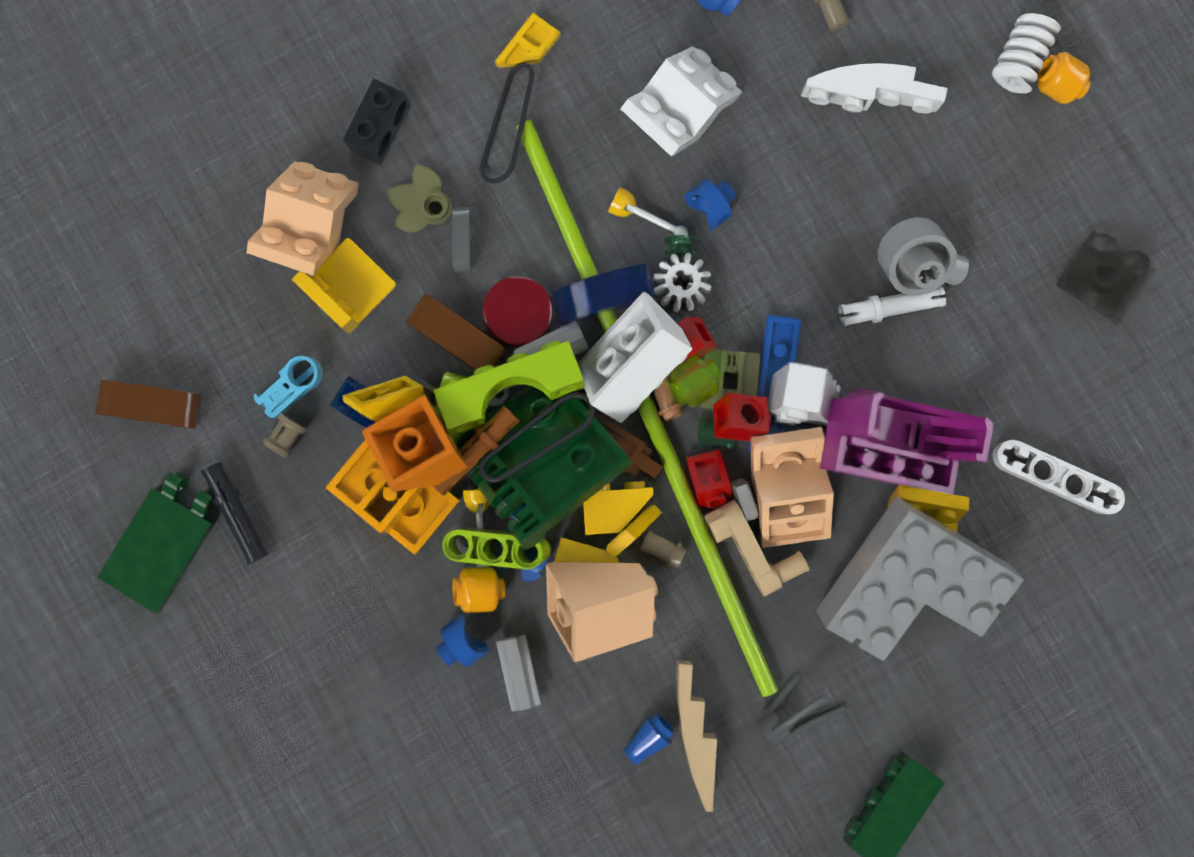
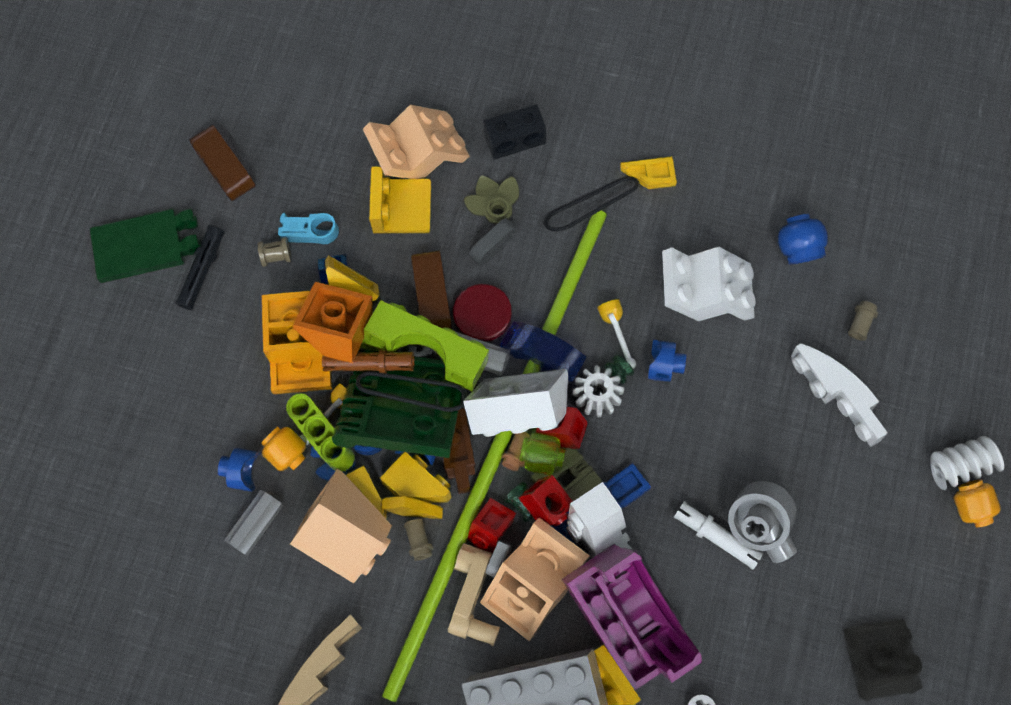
camera: 50 degrees right, 15 degrees down
(650, 738) = (286, 647): blue cone -> none

